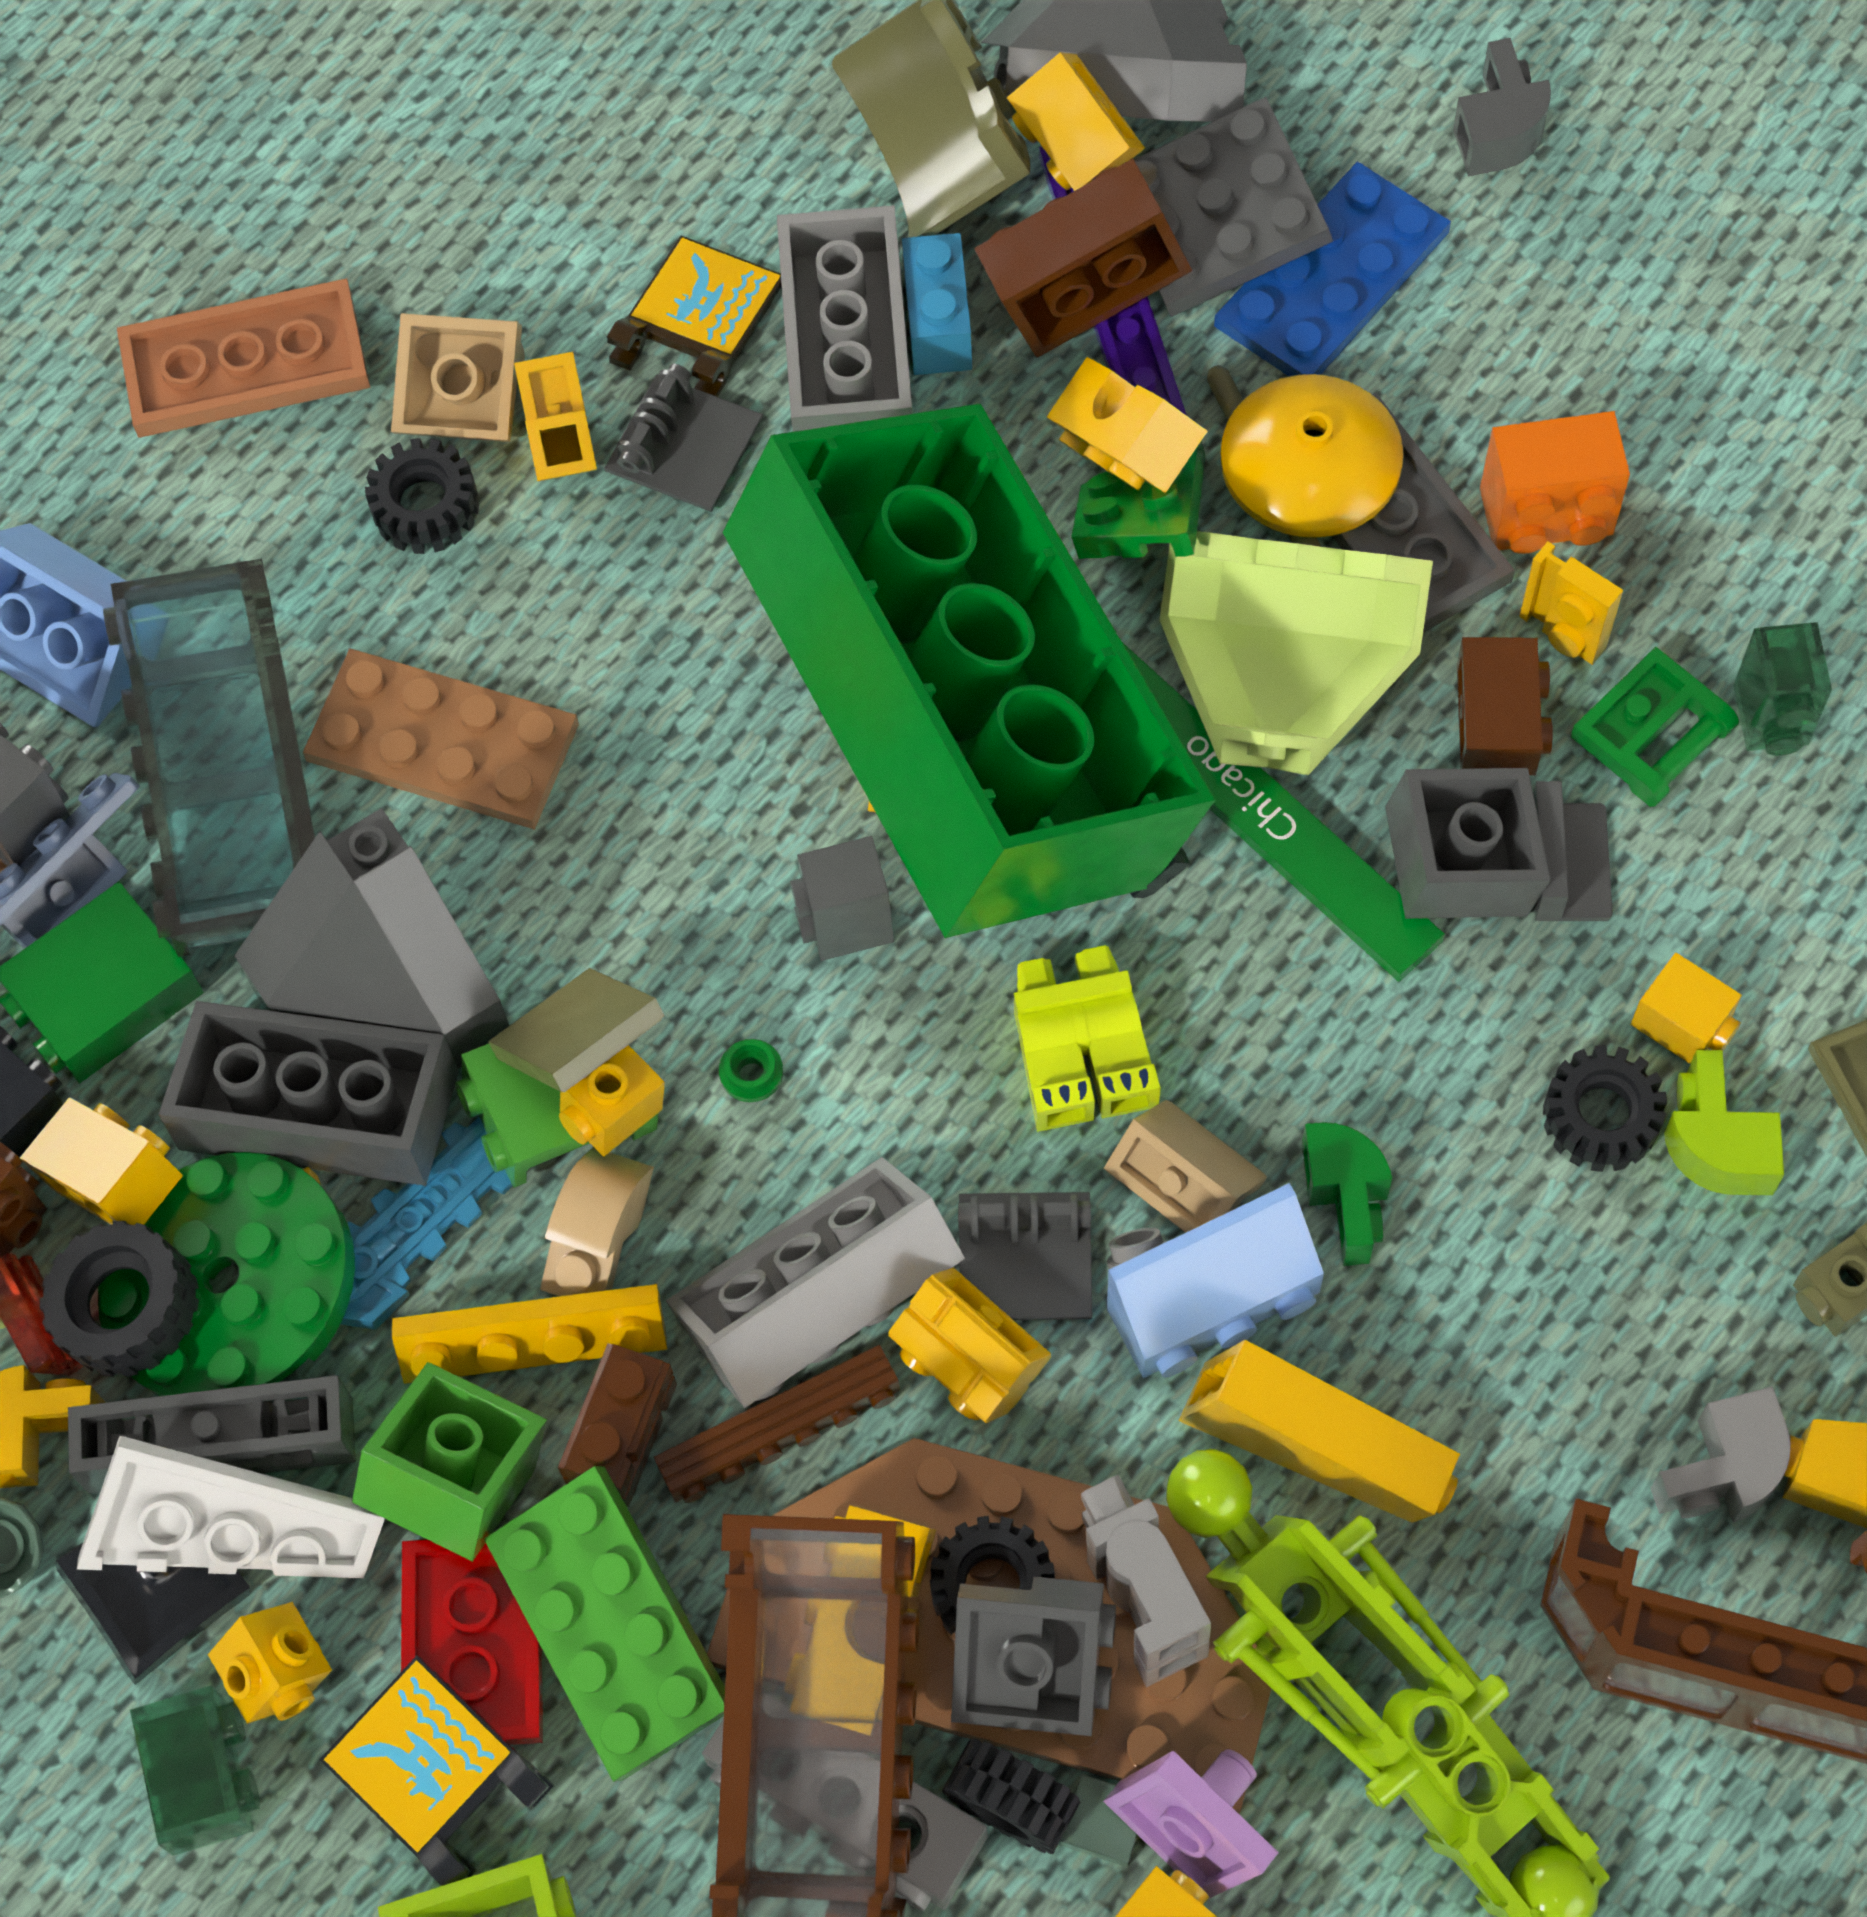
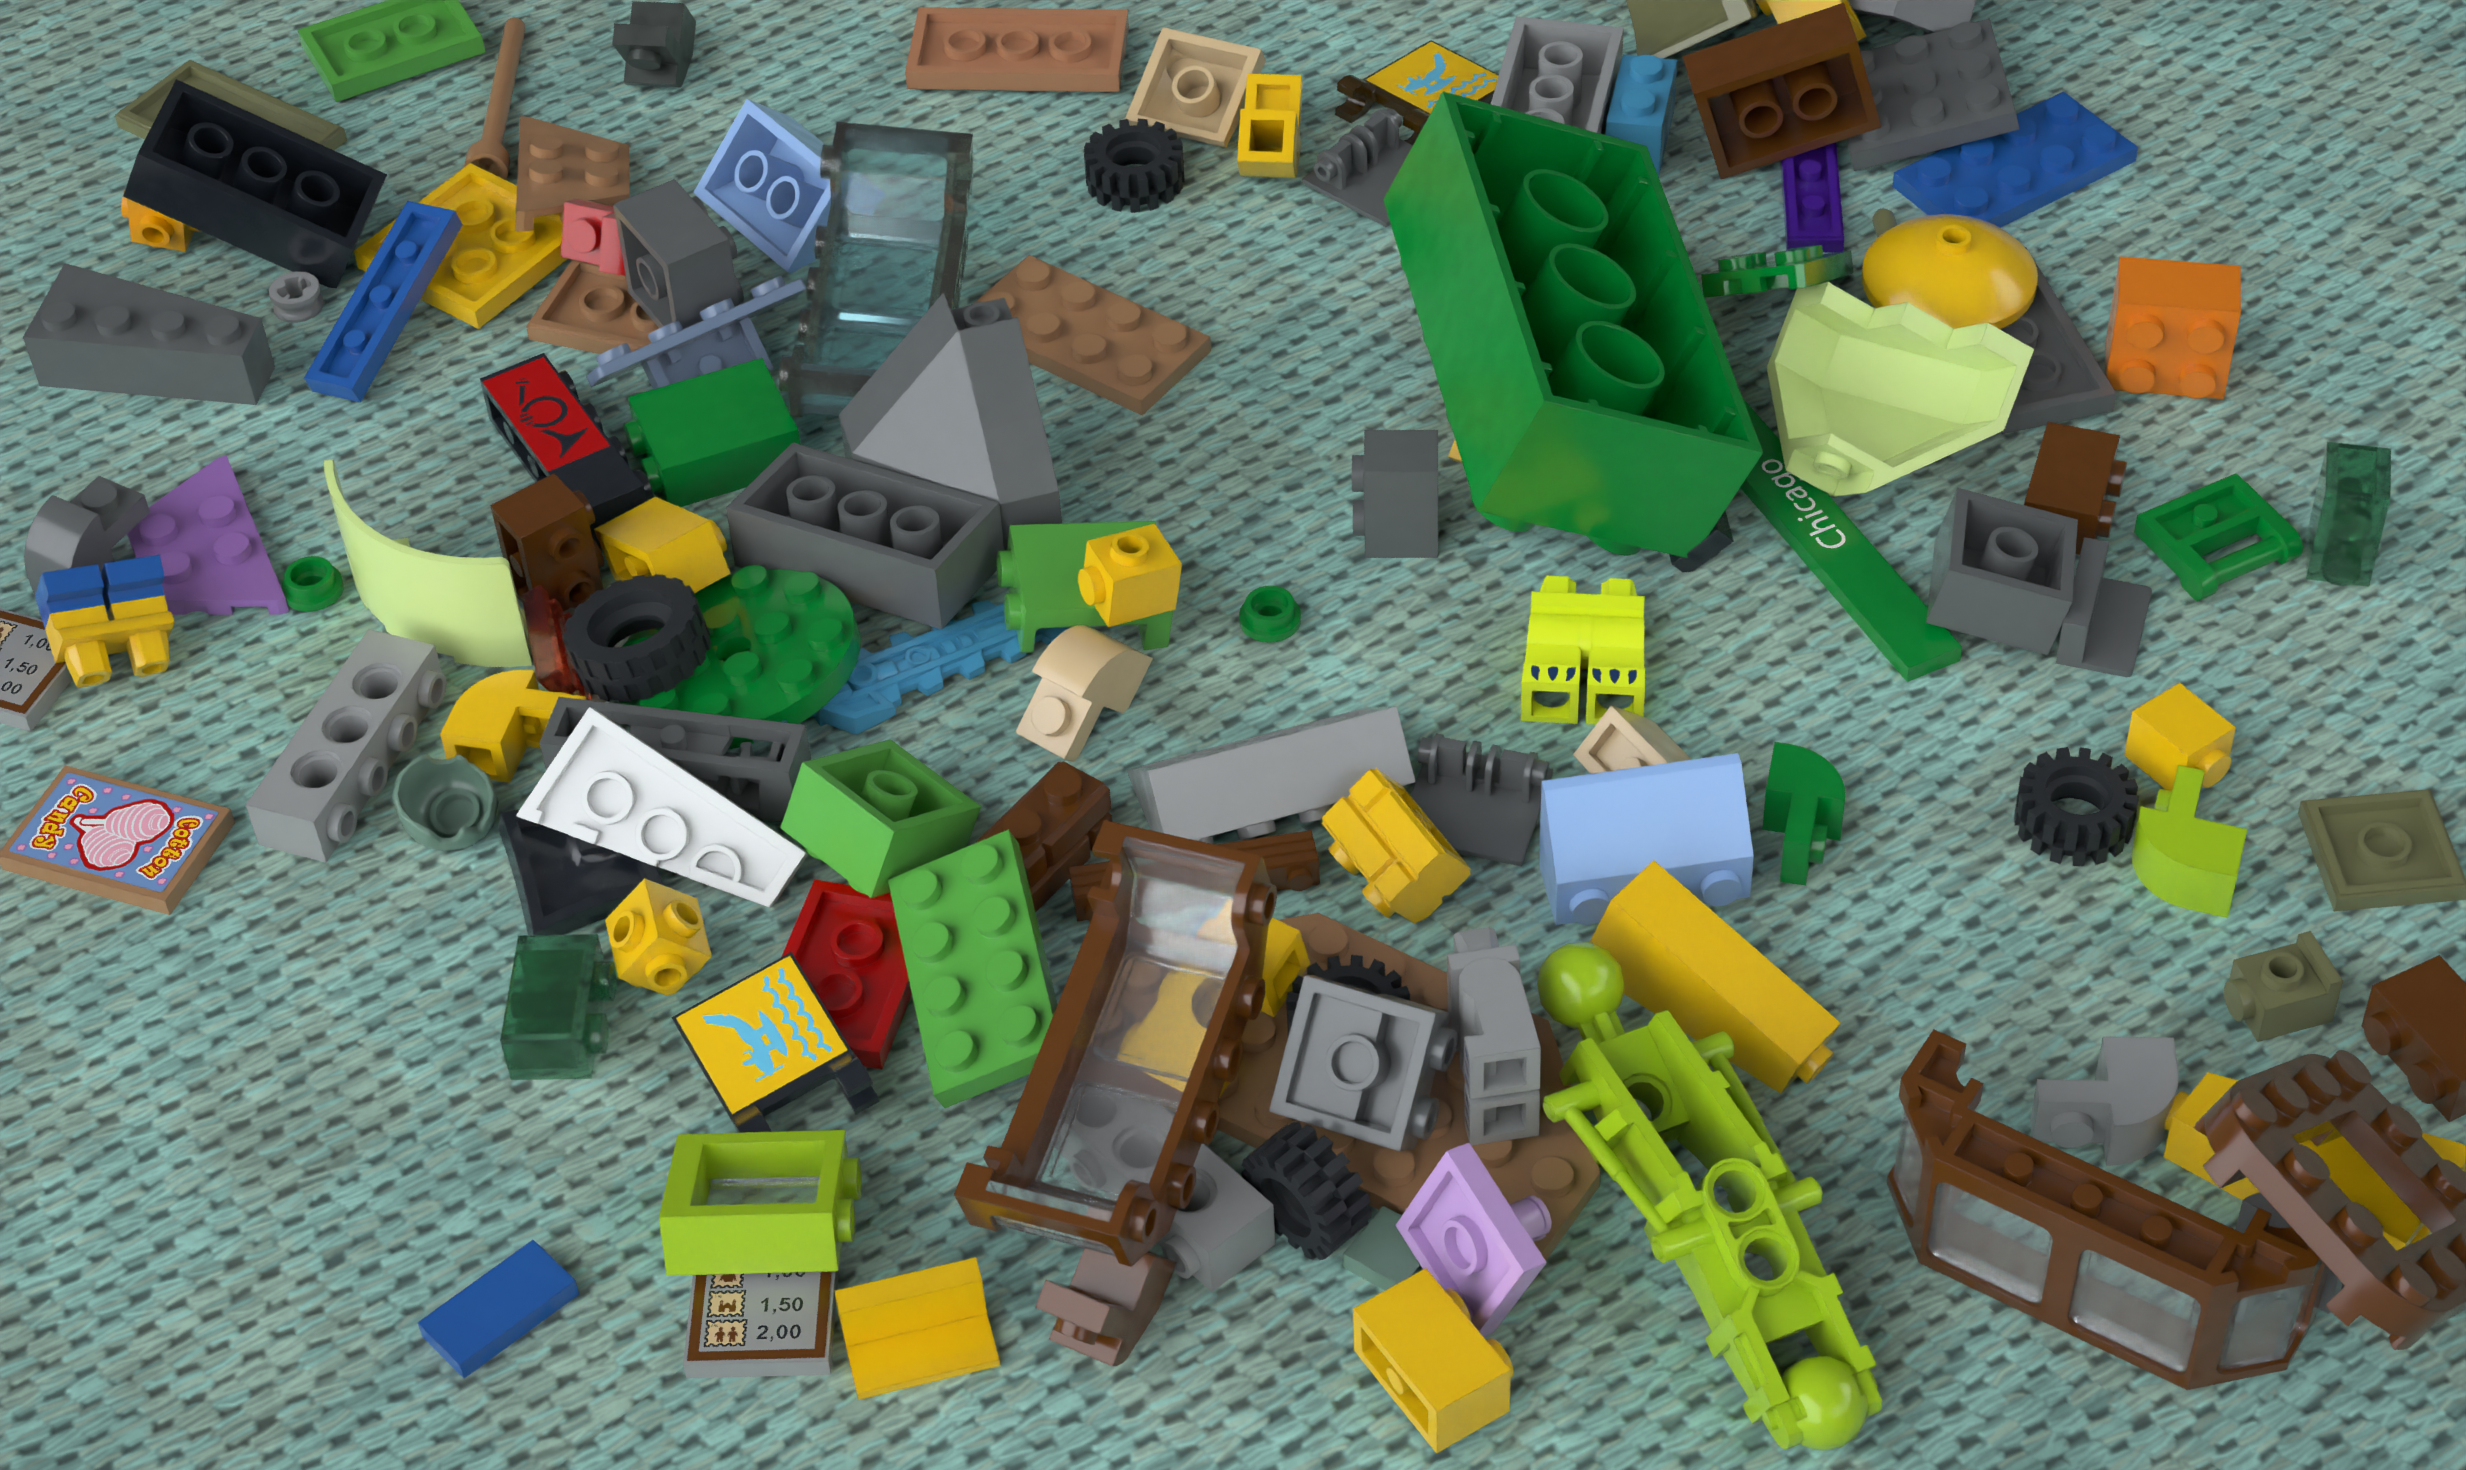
camera: 15 degrees right, 20 degrees down
(530, 1332) = (995, 753): yellow plate -> none
(576, 1029) = (1118, 514): olive tile -> none
(1124, 427) = (1778, 206): yellow arch -> none
(1508, 120) = (2210, 85): dark grey brick -> none
(1571, 603) = (2160, 416): yellow plate -> none

